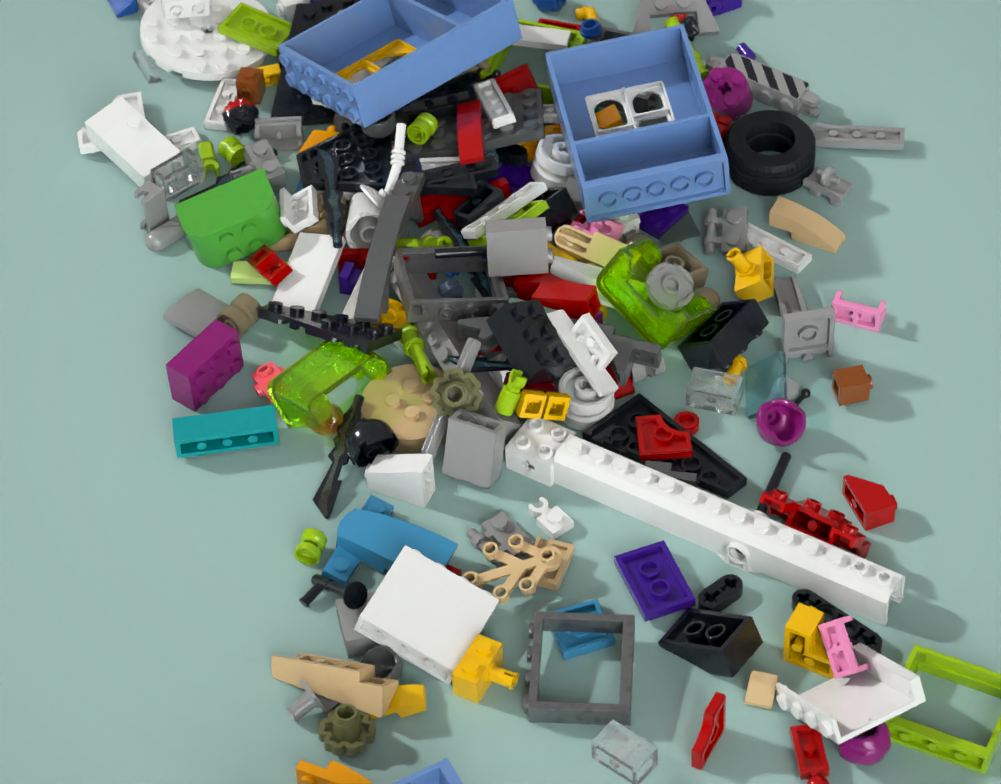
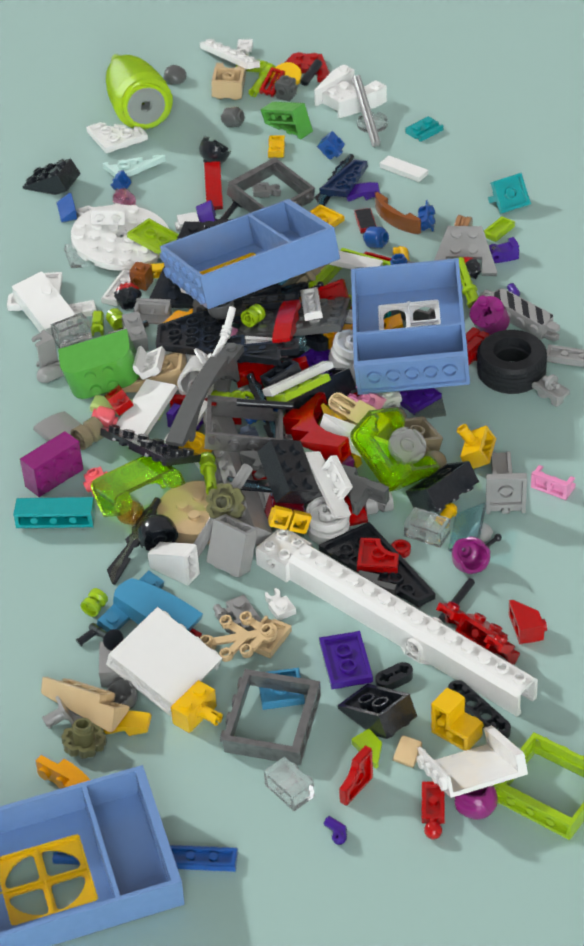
camera: 10 degrees right, 5 degrees down
(258, 288) = (105, 415): none -> coral head
(332, 198) = (173, 357): black sword -> none
(510, 393) = (265, 507): lime bar -> none
(518, 246) = (296, 402): light grey brick -> none
(706, 684) = (370, 739): none -> lime tile
(734, 230) = (471, 412): light grey plate -> none
(780, 250) = (502, 432): white tile -> none
(805, 225) = (527, 416): tan slope -> none
(840, 648) = (473, 726): bright pink hinge -> none
(851, 385) = (533, 534): dark orange brick -> none

